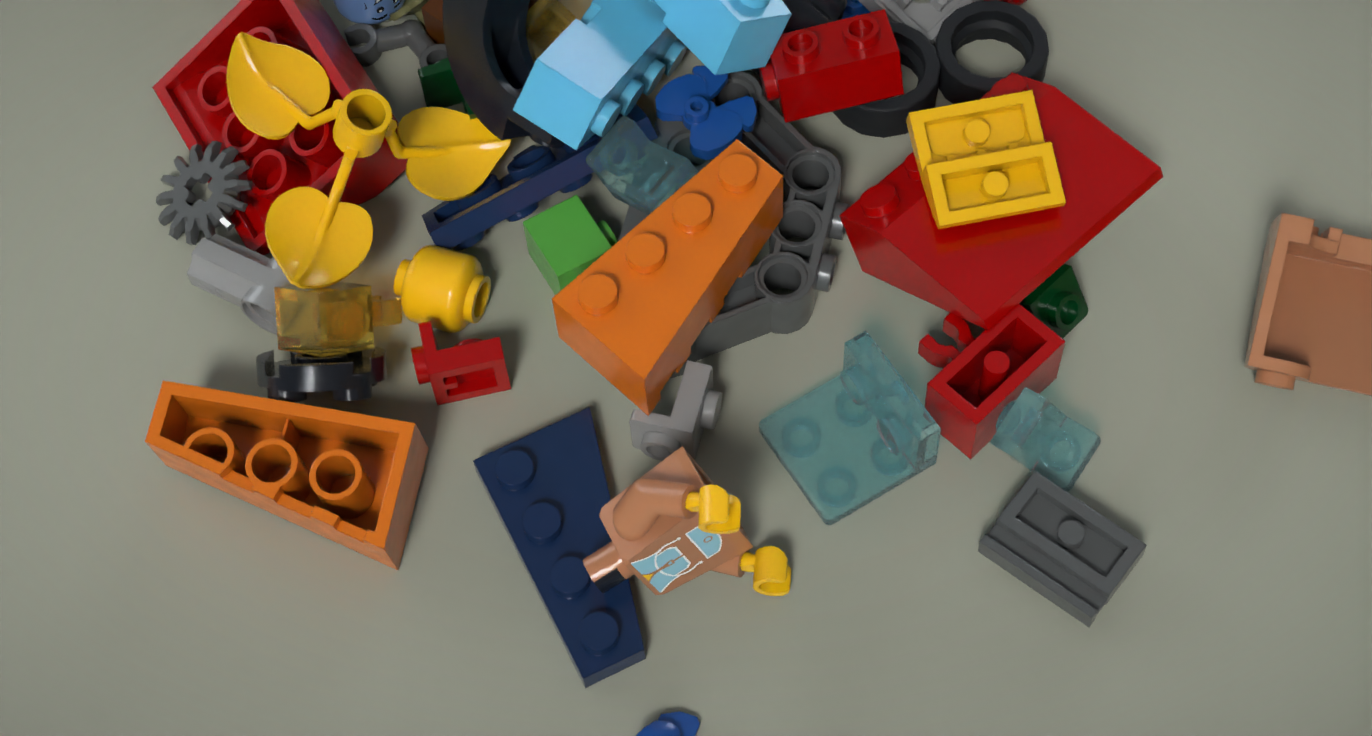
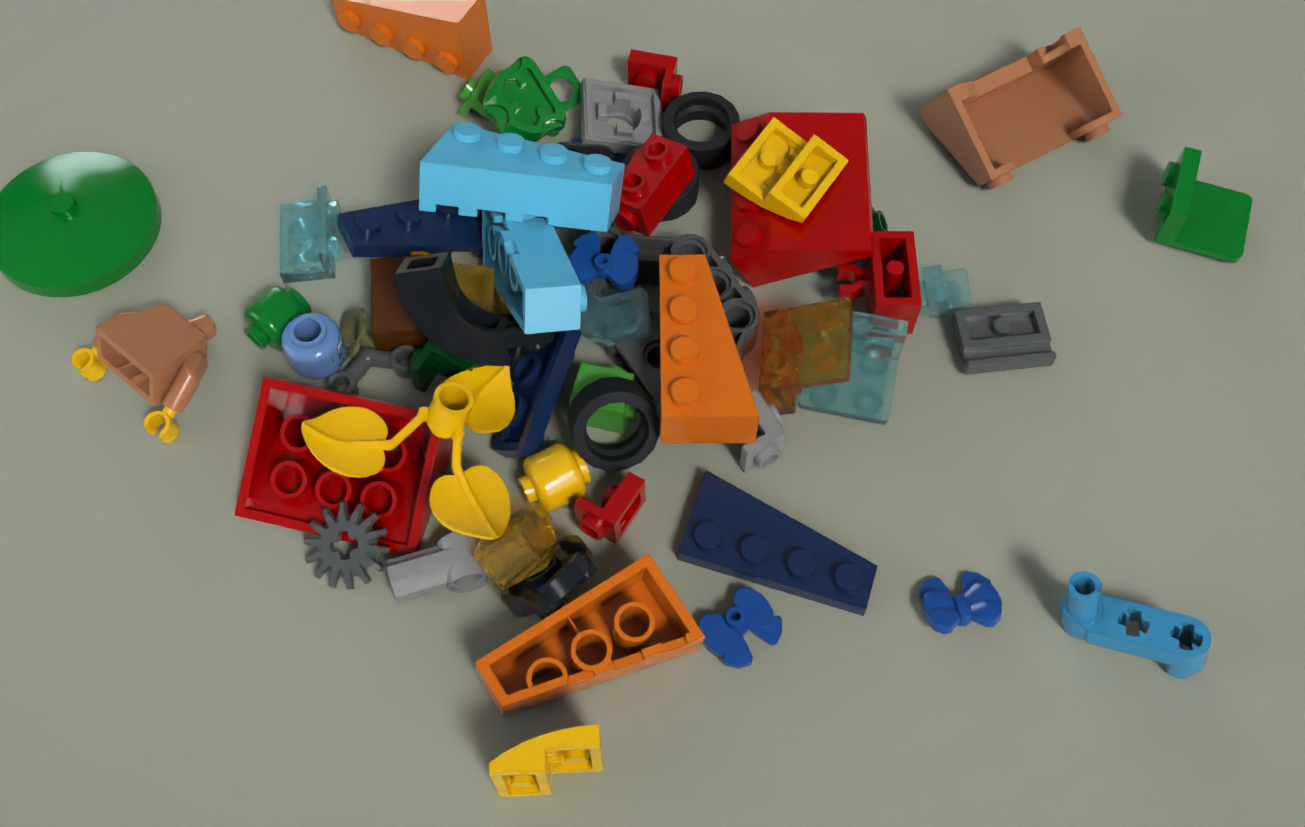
camera: 50 degrees left, 0 degrees up
(136, 527) = (530, 765): none -> yellow slope
(475, 580) = (726, 631): none -> blue piece
(498, 284) = (628, 452): none -> black tyre
(677, 528) = (840, 479): nougat torso -> none
(797, 365) = (805, 350): none -> clear orange bracket

